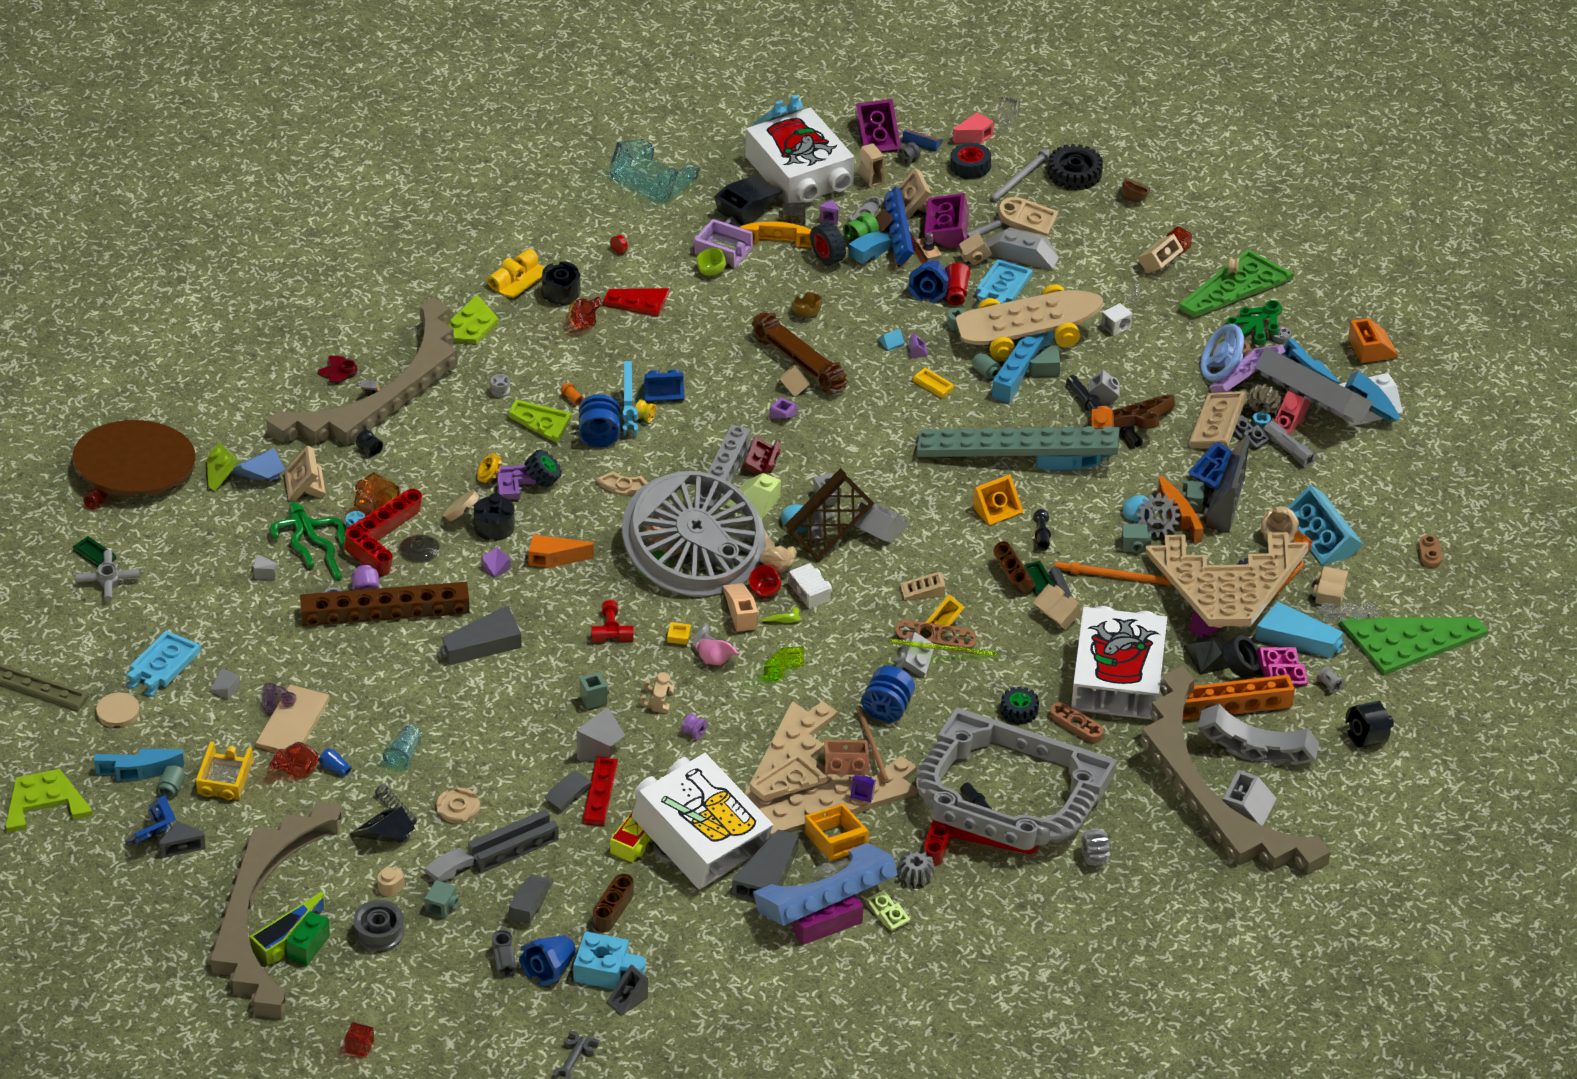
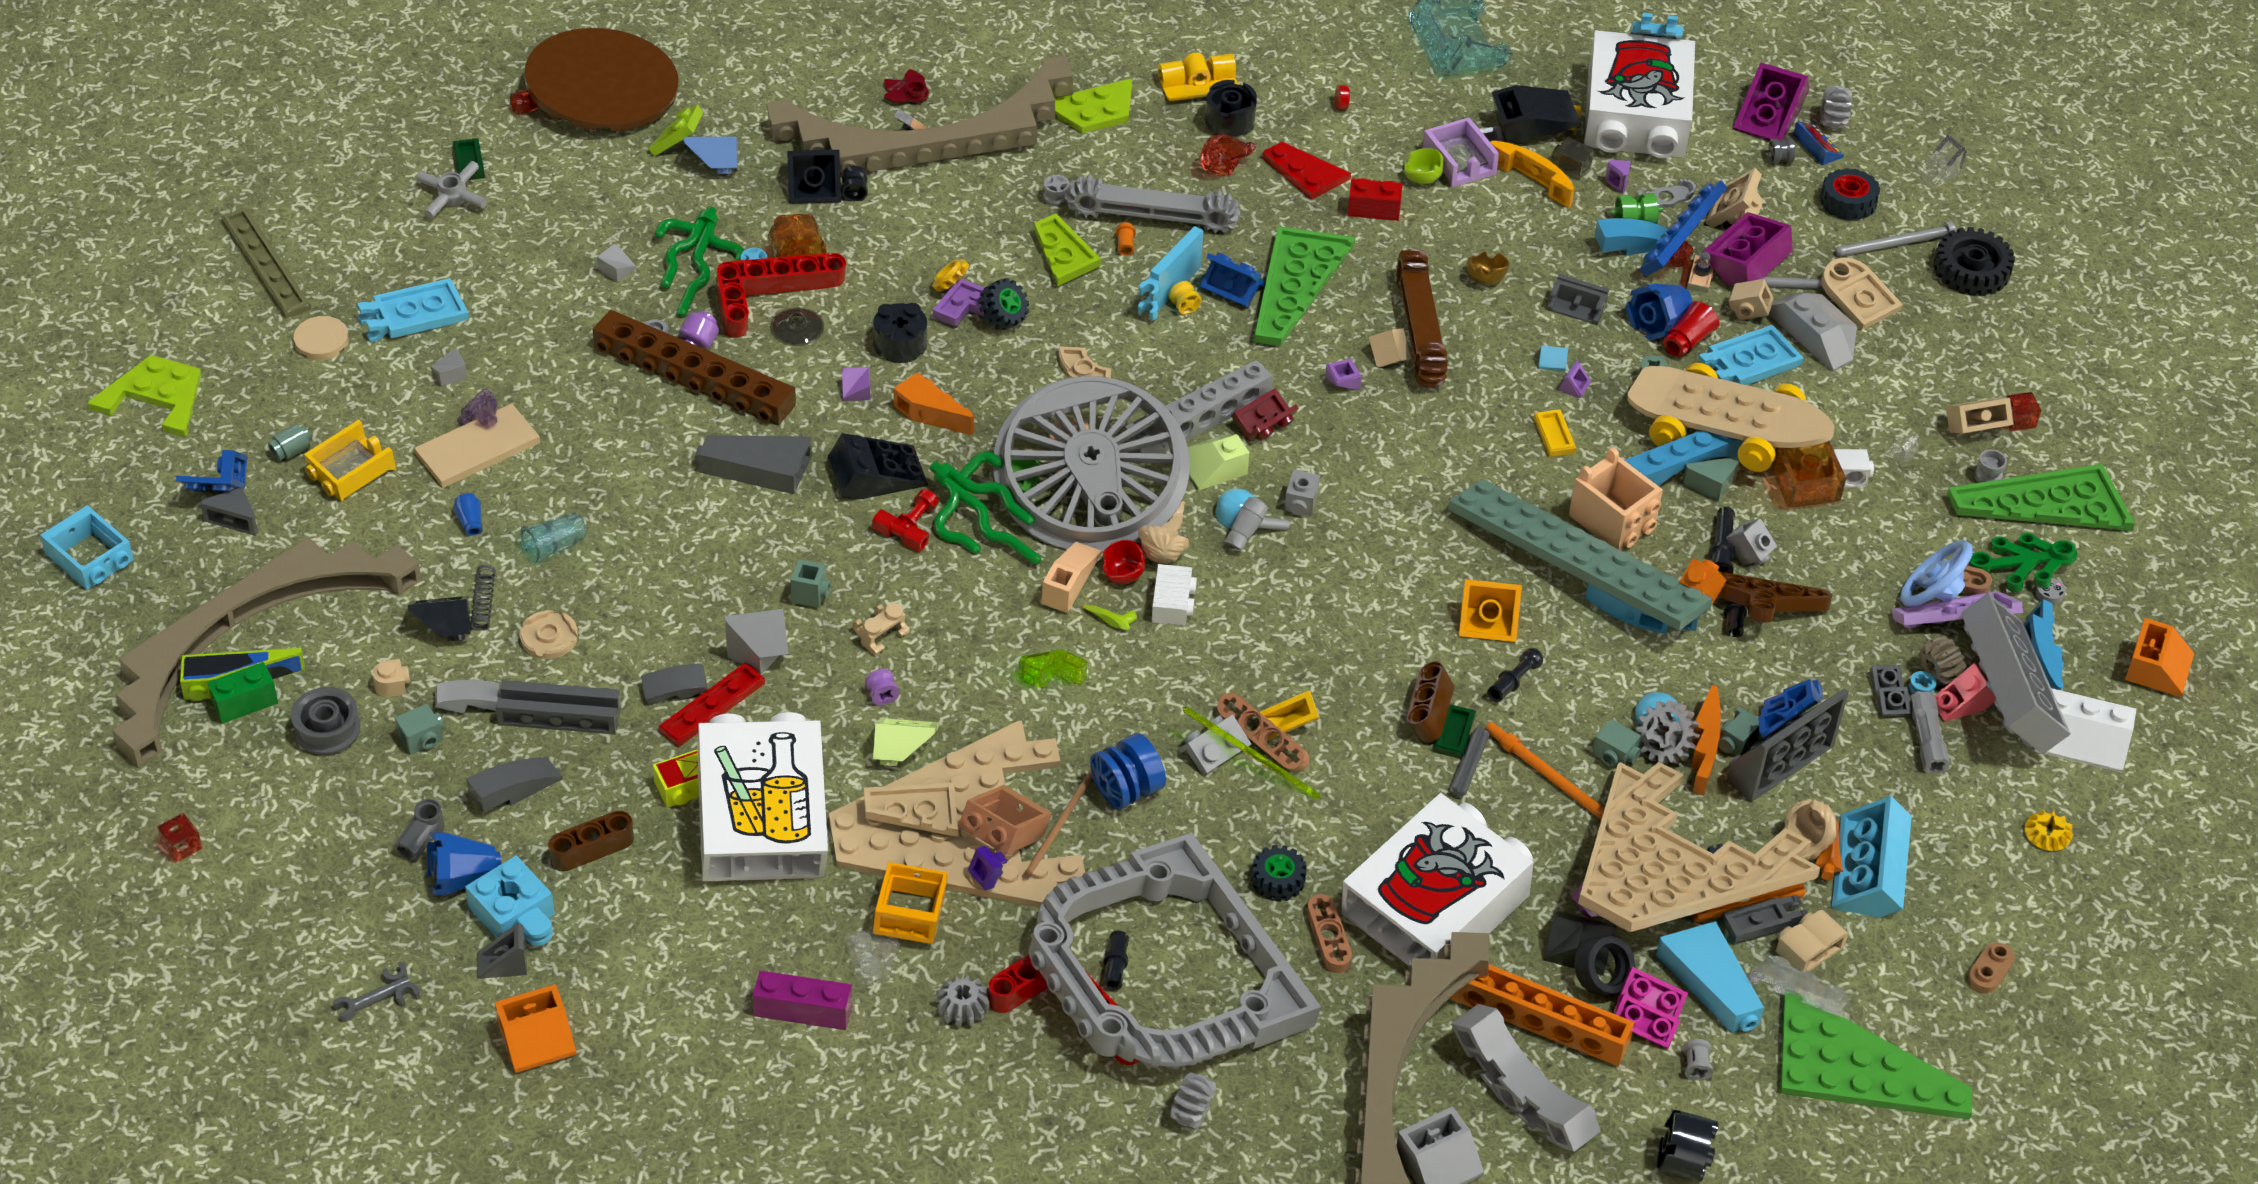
camera: 35 degrees right, 5 degrees up
(108, 896) = (83, 524): none -> medium azure window
(146, 765) = (277, 409): dark azure slope -> none
(295, 760) = (426, 487): clear red hair -> none
(304, 476) = (752, 187): tan bracket -> none
(339, 451) = (814, 176): none -> black slope
(460, 505) = (876, 300): tan tile -> none
(532, 376) = (1212, 211): none -> light grey arm
(558, 605) = (874, 466): none -> black slope
(599, 420) = (1114, 281): blue wheel -> none
(628, 589) = (958, 485): none -> green plant
(679, 633) = (973, 570): yellow plate -> none
(691, 1018) = (535, 1028): none -> orange slope
(698, 359) = (1296, 275): none -> bright green wing
(701, 296) = (1375, 199): none -> red brick
(712, 650) = (989, 606): bright pink hair -> none
(736, 748) = (900, 738): none -> yellowish green slope
(768, 865) = (798, 901): dark grey slope -> none
(788, 903) = (763, 957): medium blue arch -> none
(815, 502) = (1251, 497): dark brown fence -> none
(828, 243) = (1574, 208): black wheel -> none
(872, 165) = (1716, 143): tan brick -> none
(875, 298) = (1578, 299): none -> dark grey hinge
(881, 522) = (1325, 562): light grey slope -> none
(883, 220) = (1671, 213): reddish brown sticker -> none
(889, 914) = (884, 1032): yellowish green slope -> none
(918, 111) = (1836, 107): none -> light grey gear
(934, 581) = (1310, 678): tan slope -> none
(973, 129) = (1886, 160): coral slope -> none
(985, 366) = (1632, 441): sand green brick -> none
(1012, 401) = (1615, 501): none -> light nougat container
(1057, 606) = (1436, 774): tan brick -> none
(1101, 334) = (1808, 475): none -> clear orange brick
(1134, 191) = (2024, 323): reddish brown cap -> none
(1190, 280) = (1990, 466): none -> light grey wheel
(1217, 419) = (1862, 654): tan tile -> none
(1233, 265) = (2057, 474): tan bush -> none
(1295, 588) = (1763, 918): none -> dark grey hinge
(1368, 389) = (2083, 727): dark azure slope -> none
(1391, 468) = (2036, 831): none -> yellow gear

